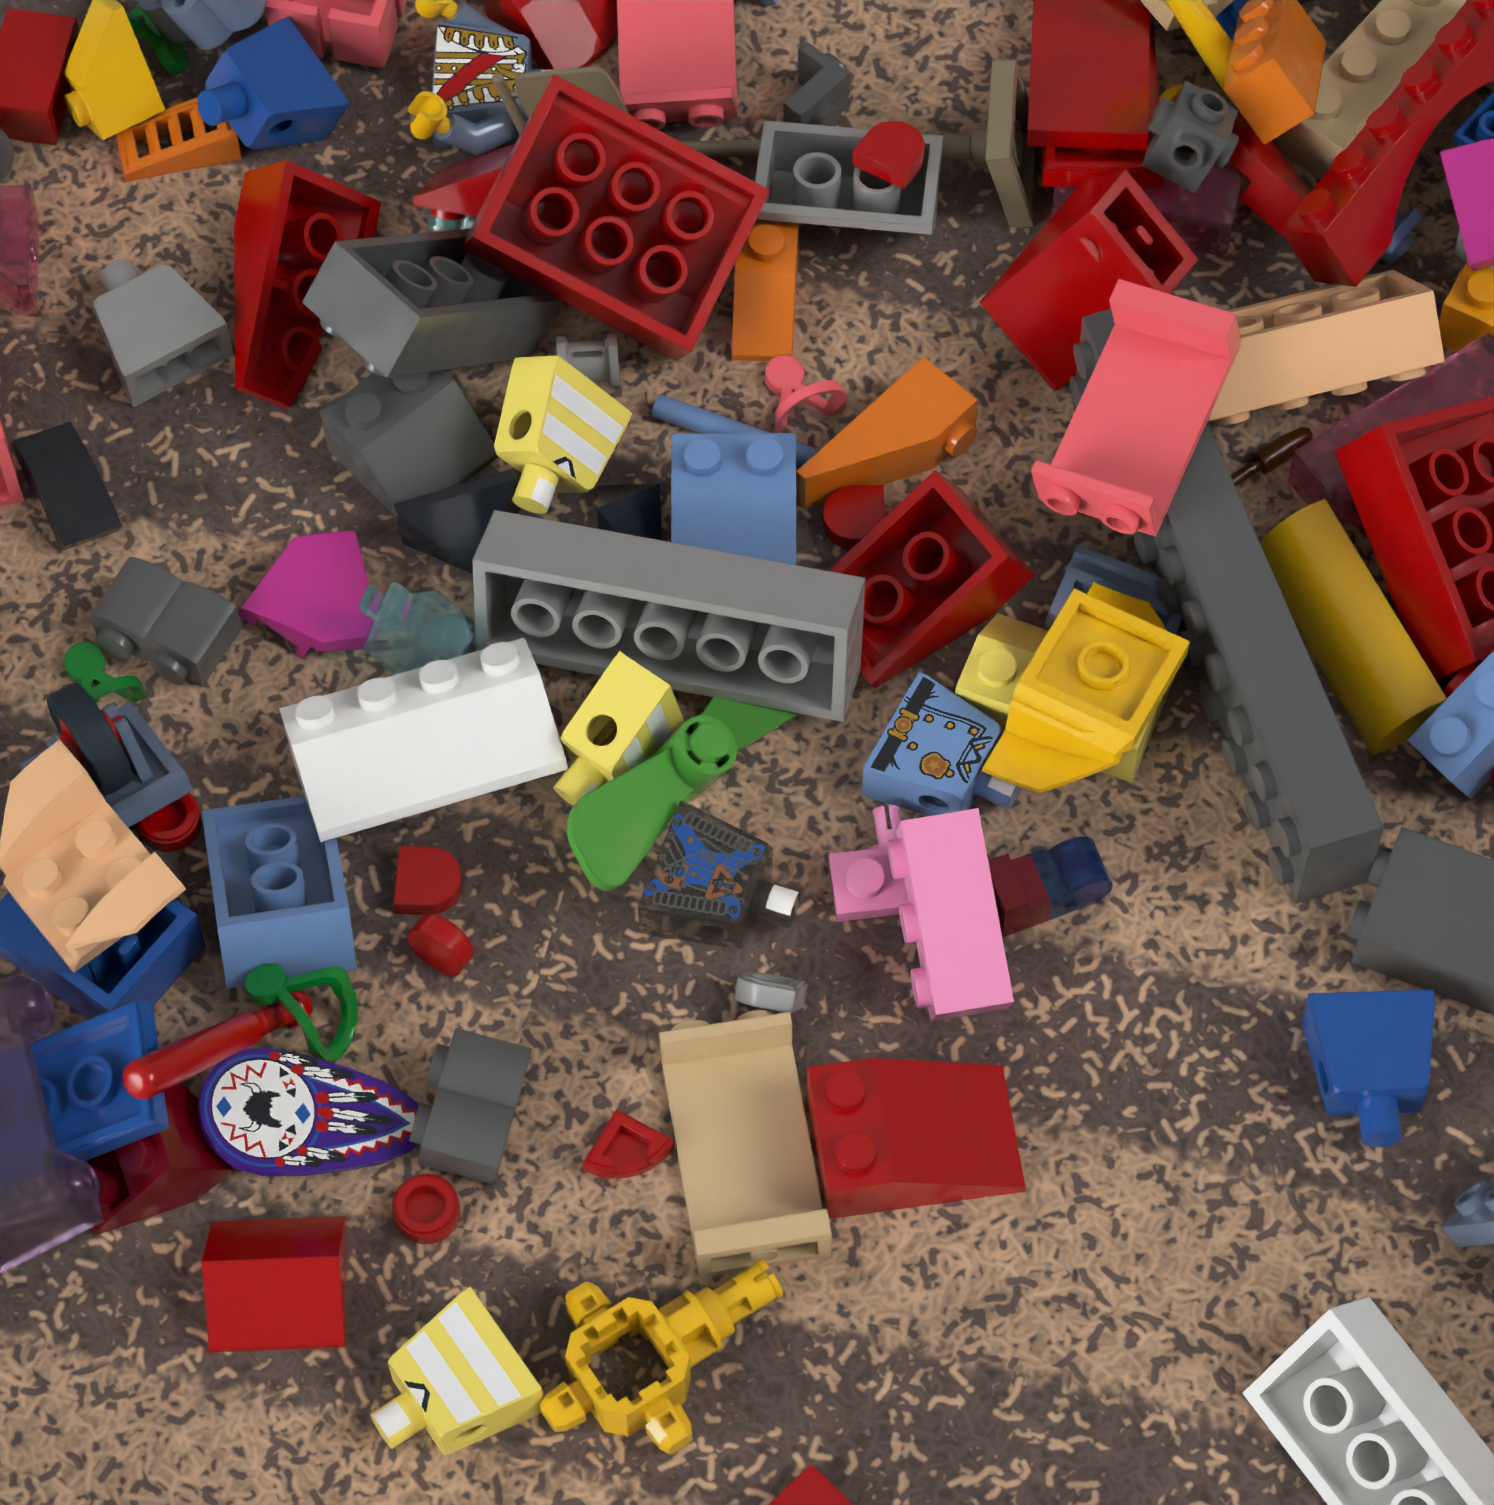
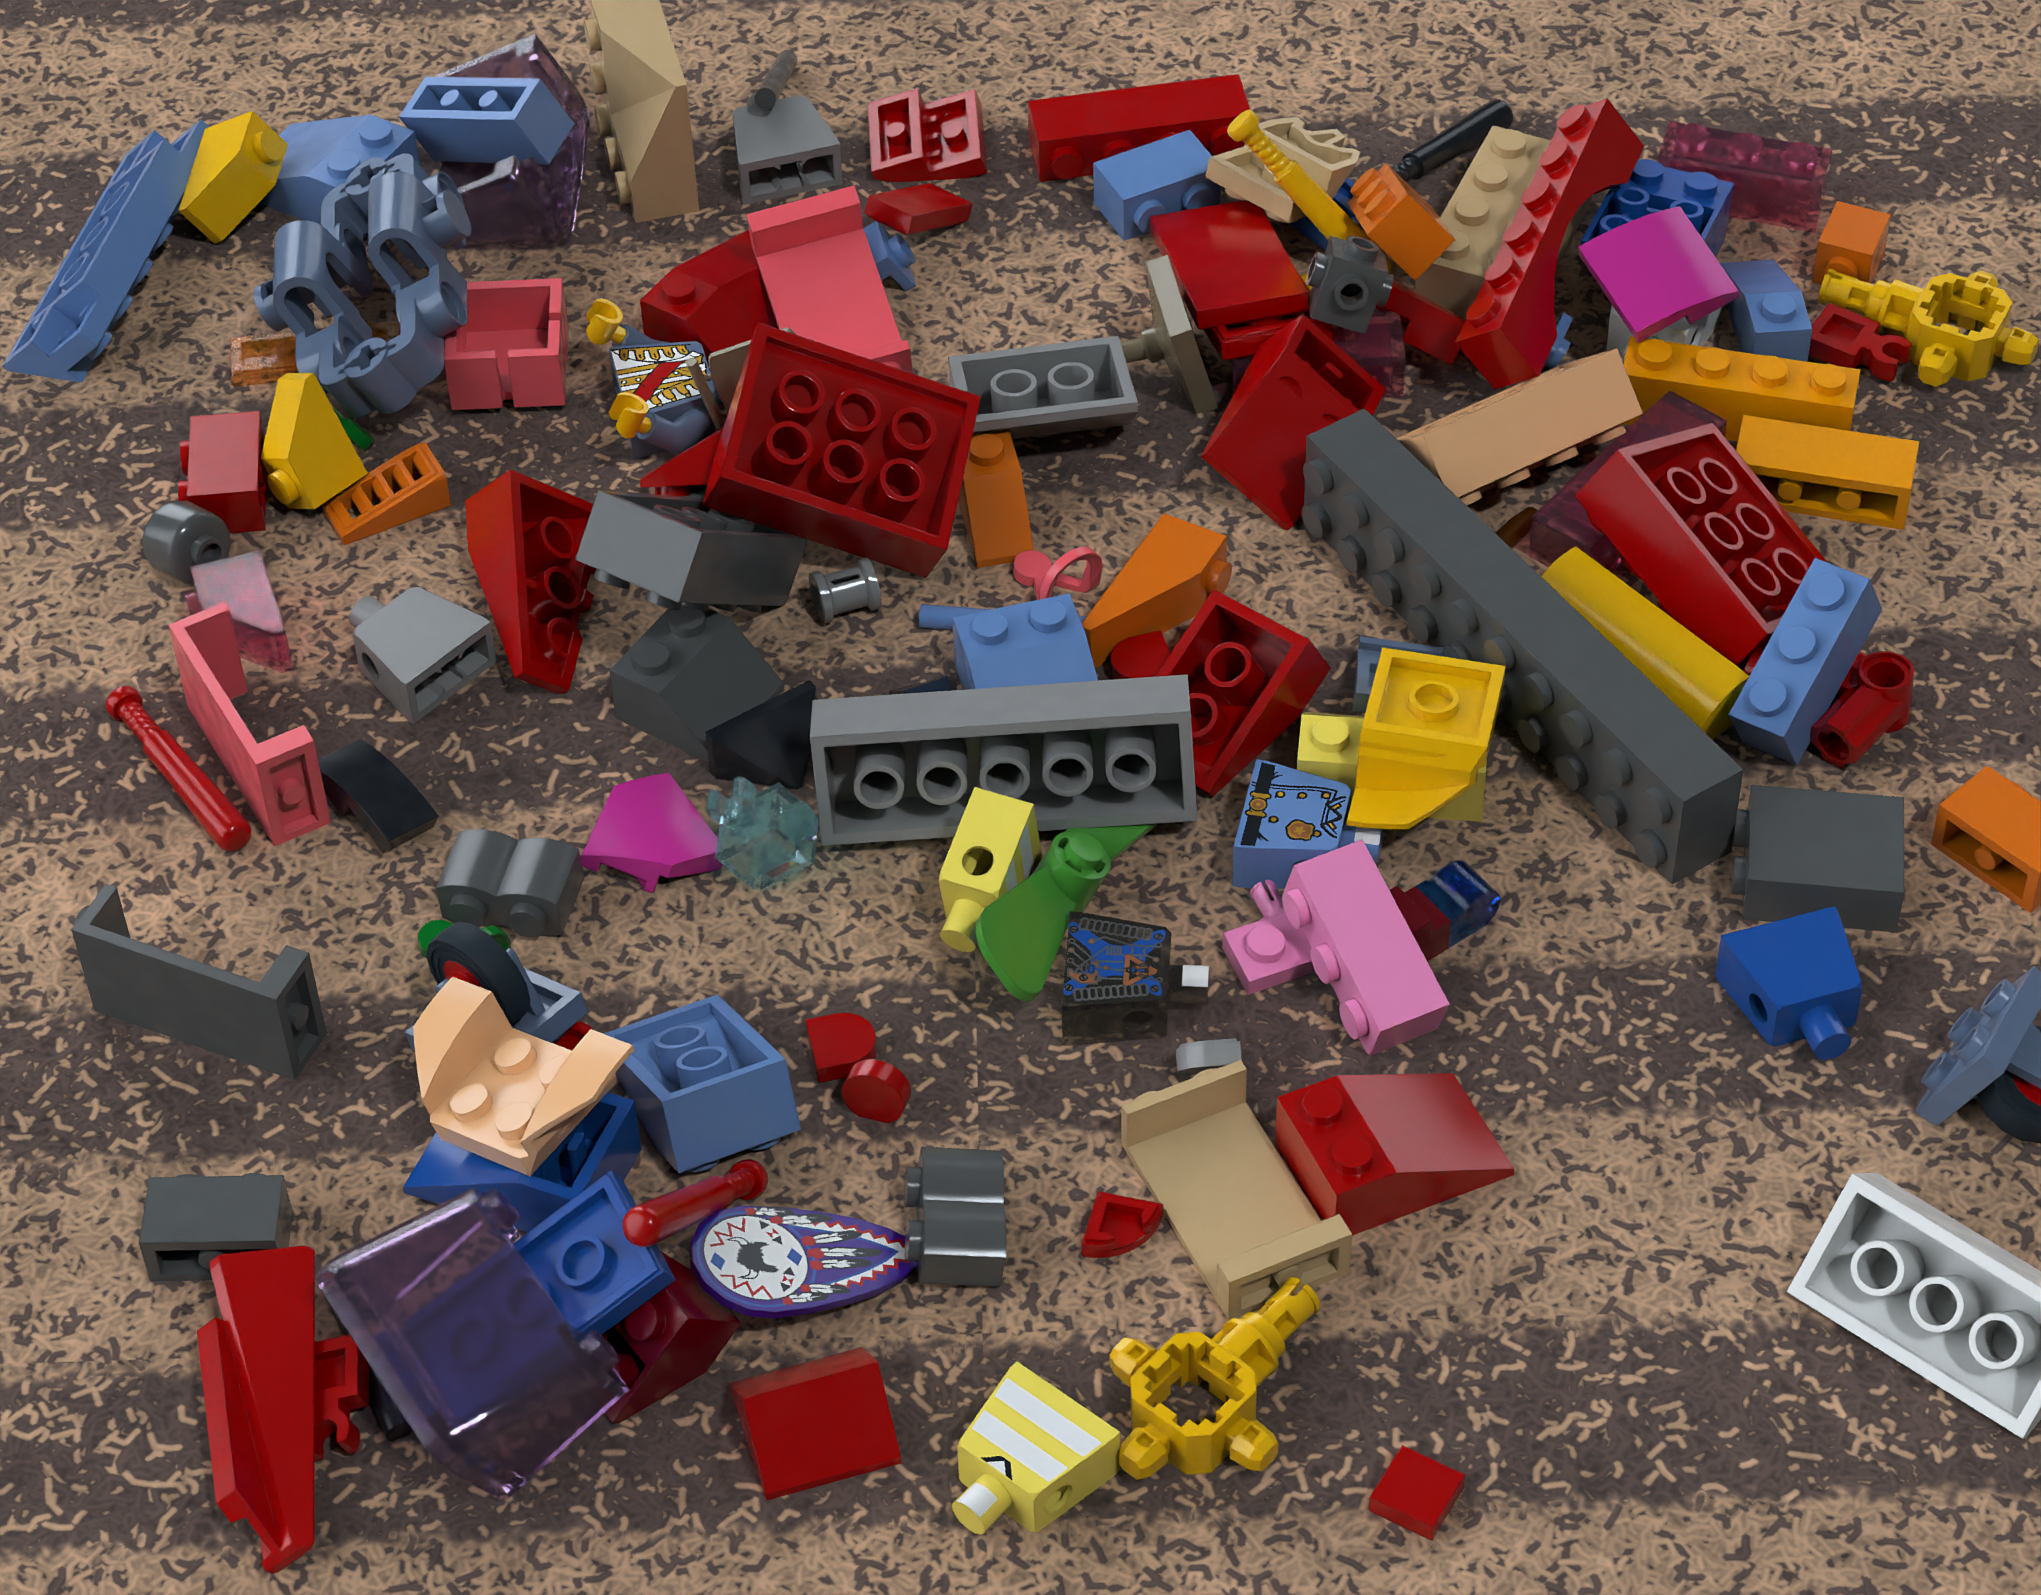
camera: 15 degrees left, 15 degrees down
(270, 984) = (726, 1152): green piece -> none
(273, 90) = (472, 430): blue torso -> none
(423, 739) = (799, 916): white slope -> none
(426, 1209) = (940, 1322): red tile -> none
(556, 430) = (839, 634): light yellow torso -> none
(823, 89) = (981, 327): dark grey bracket -> none
(891, 152) = (1078, 352): red tile -> none
(1141, 410) = (1391, 487): coral panel -> none

